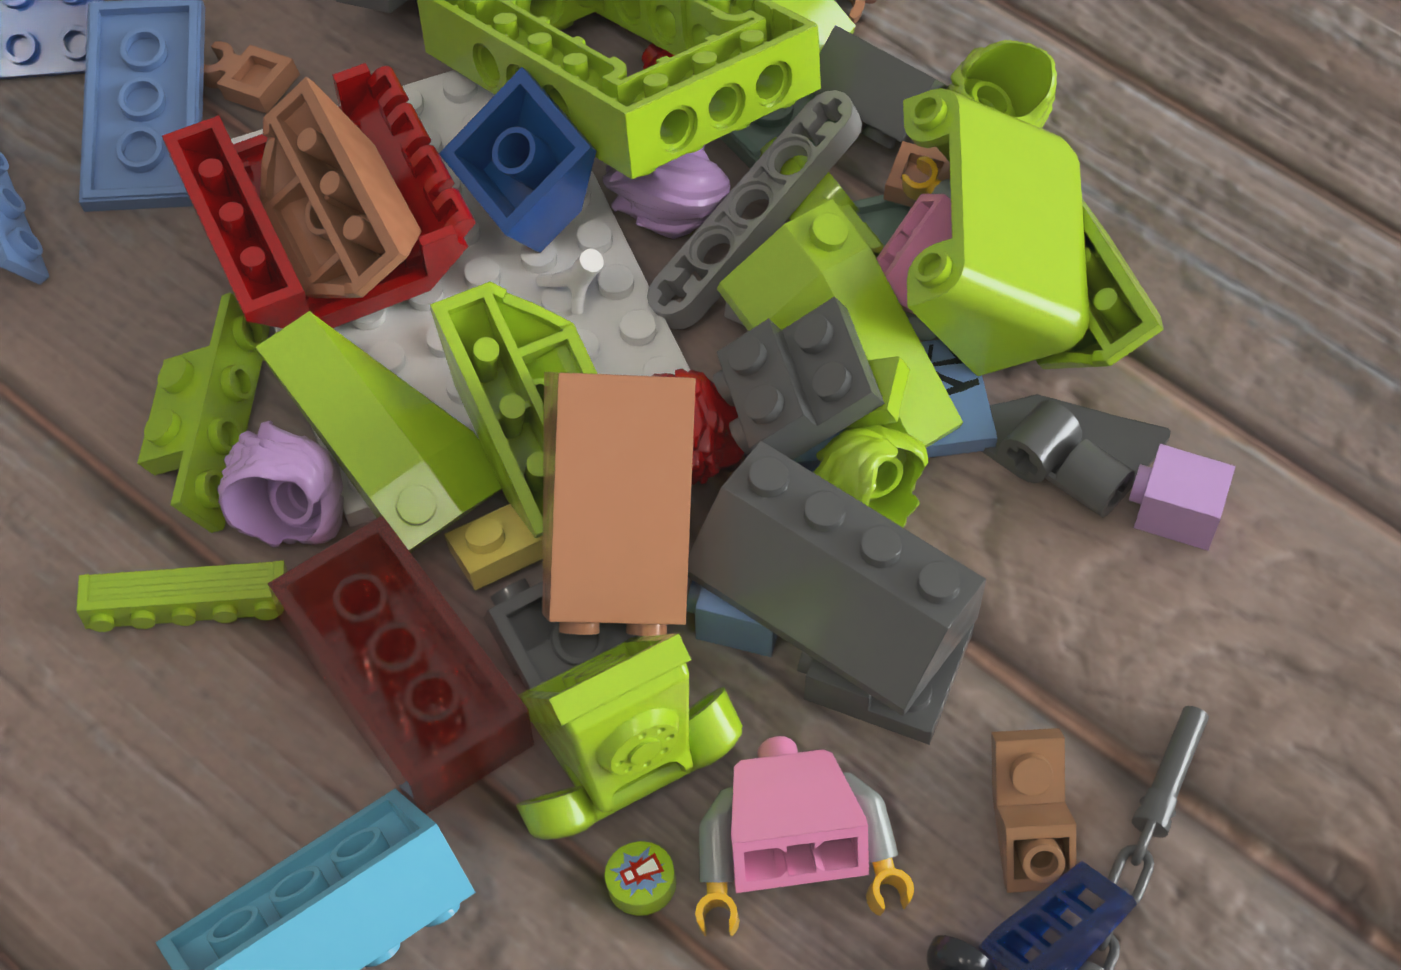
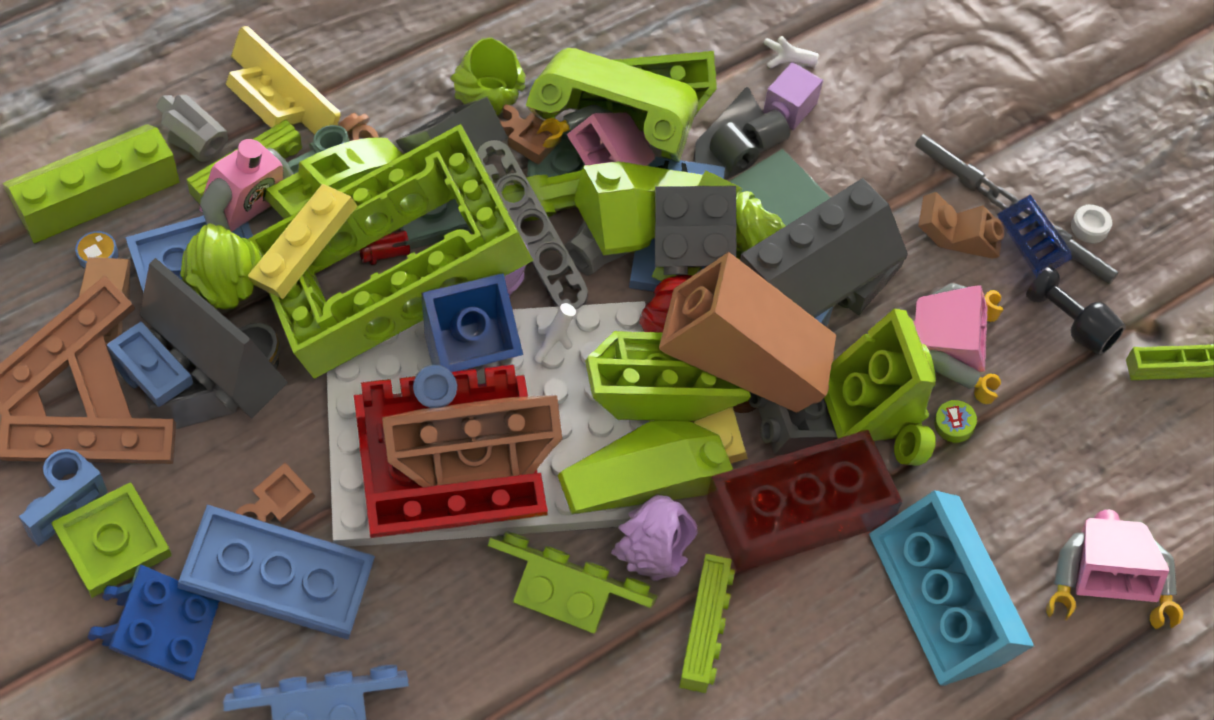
camera: 80 degrees left, 0 degrees up
(403, 139) = (434, 386): none -> medium blue tile
(988, 522) = (782, 187): none -> sand green tile
(1281, 485) = (789, 53): none -> white bar

